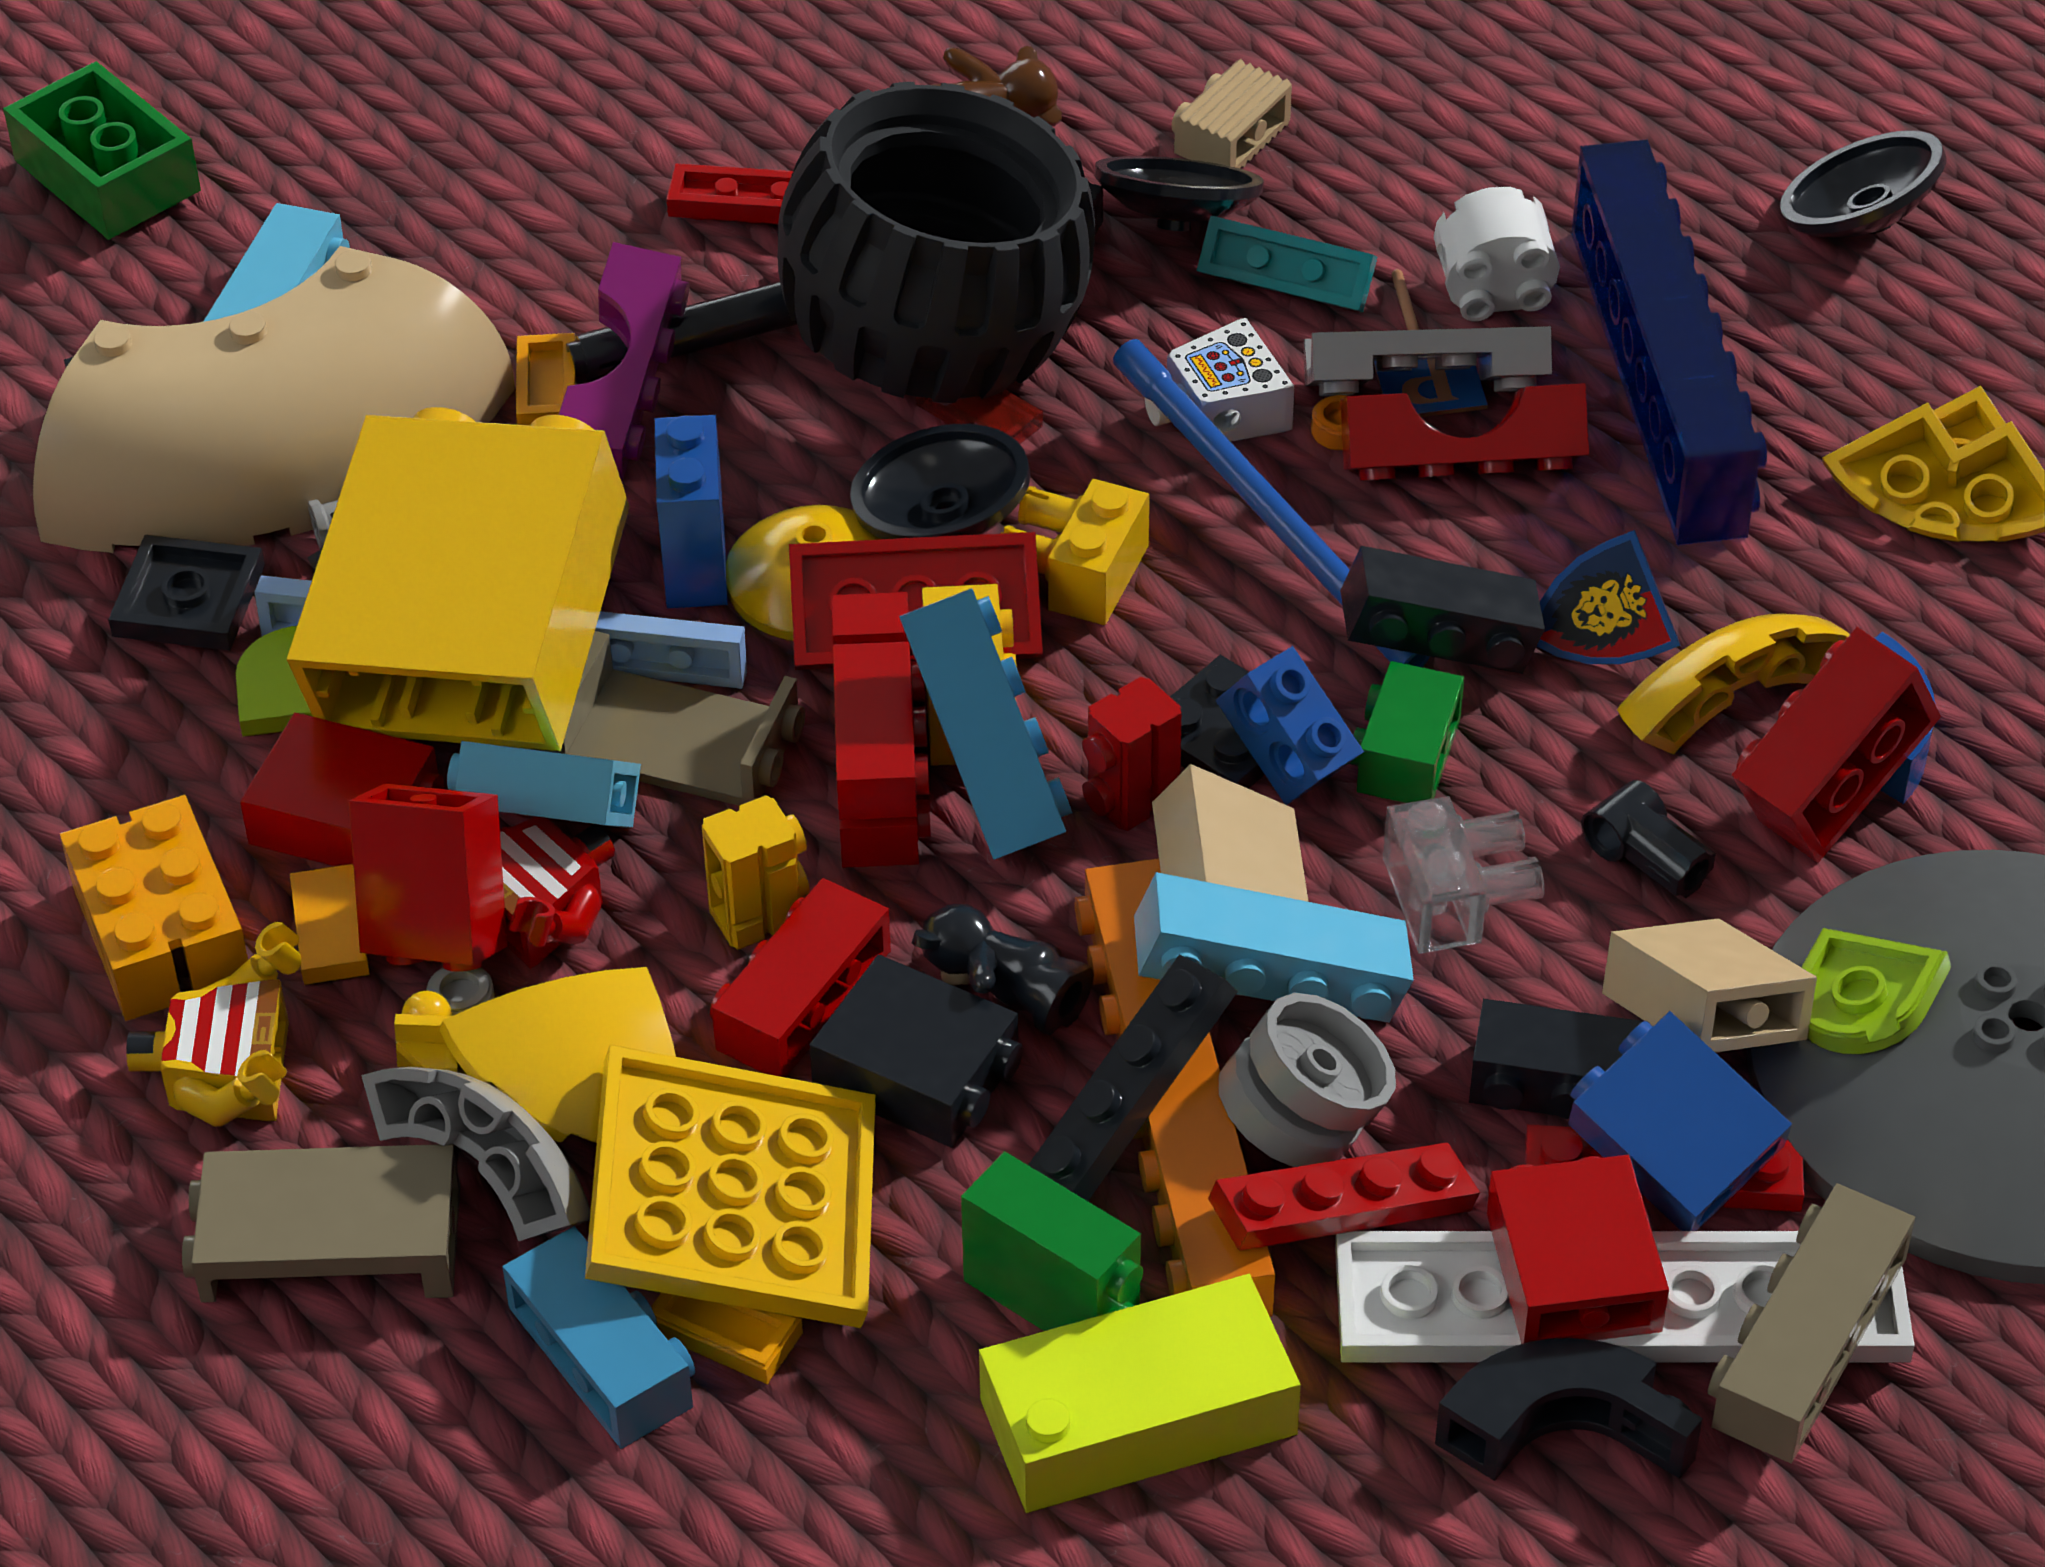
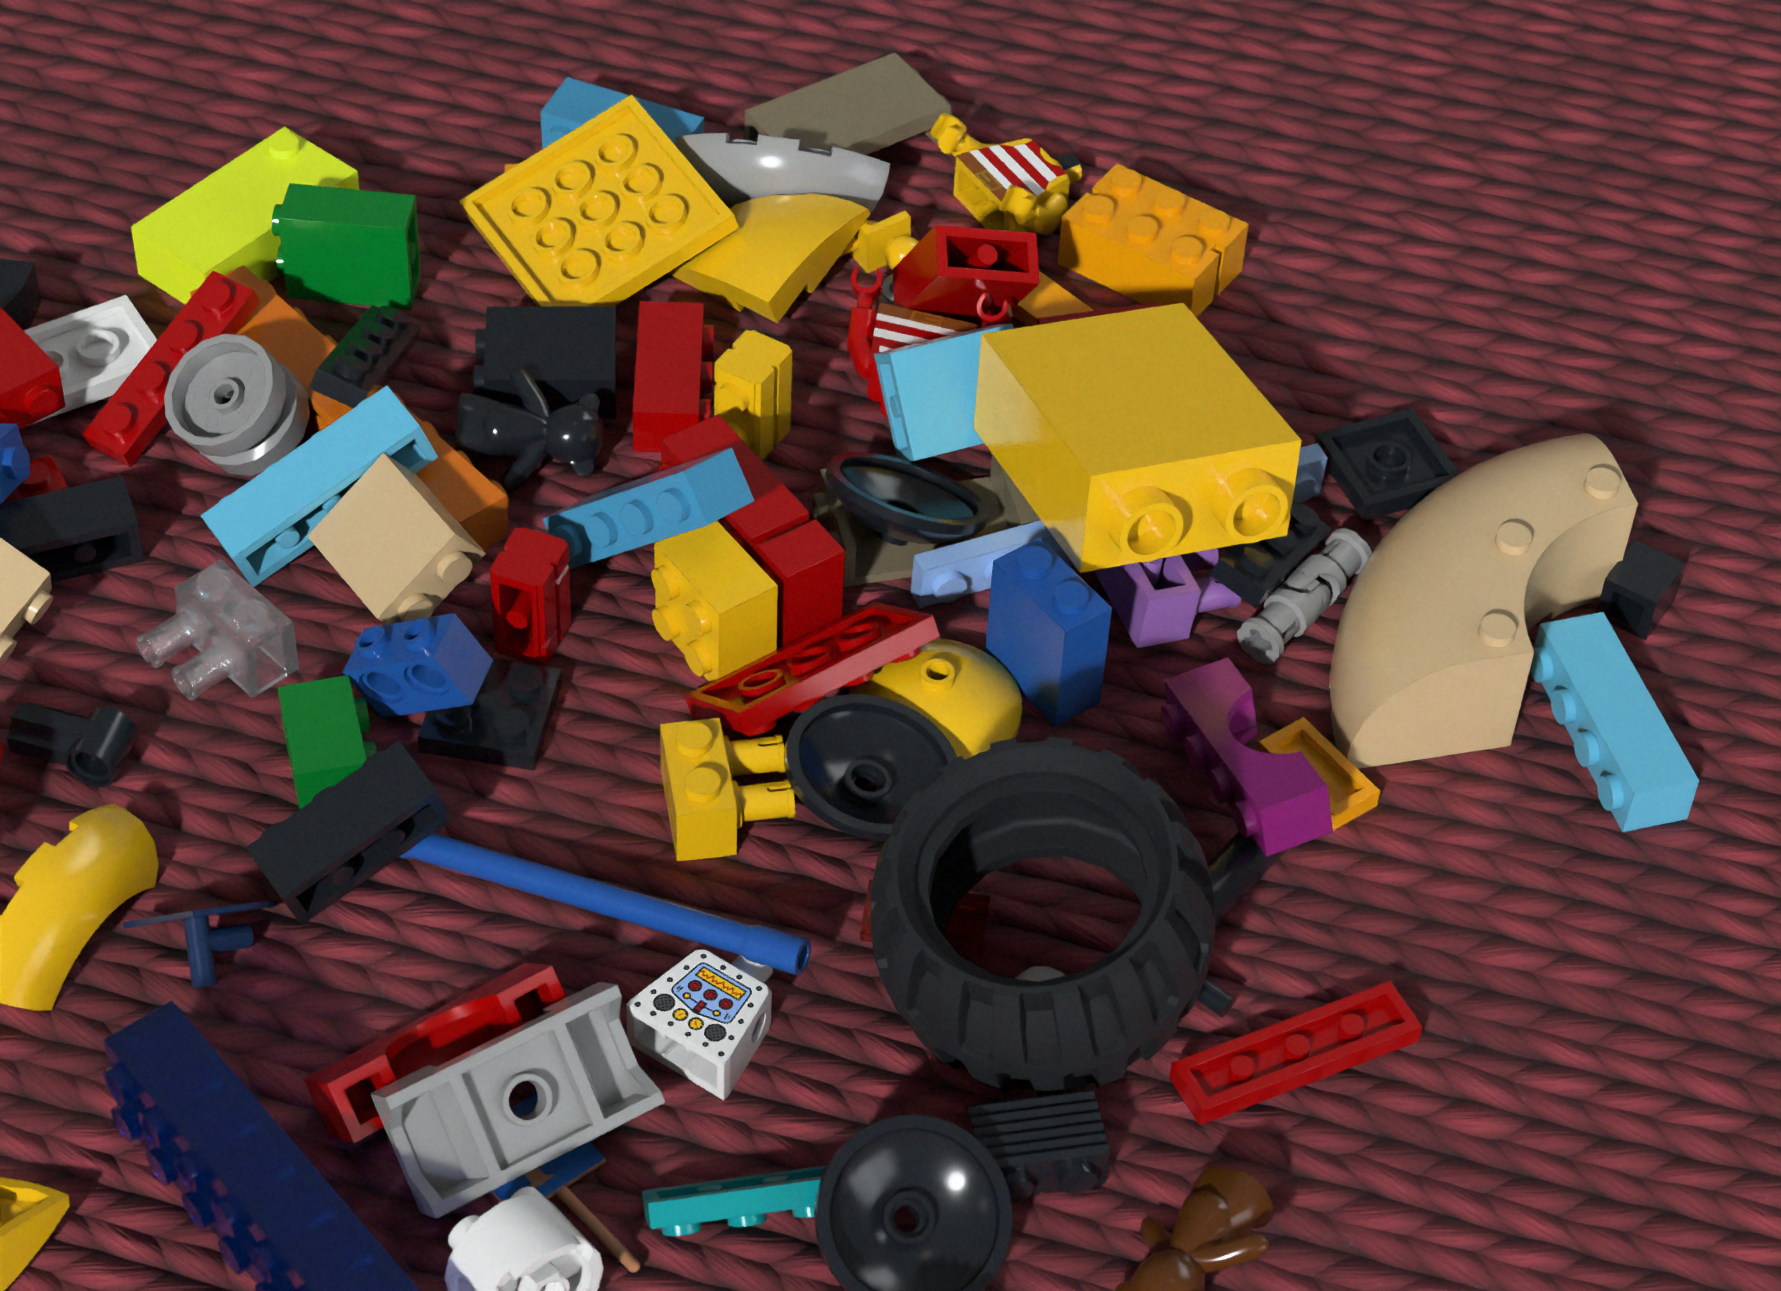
camera: 145 degrees right, 0 degrees up
(694, 696) = (905, 499): none -> black dish

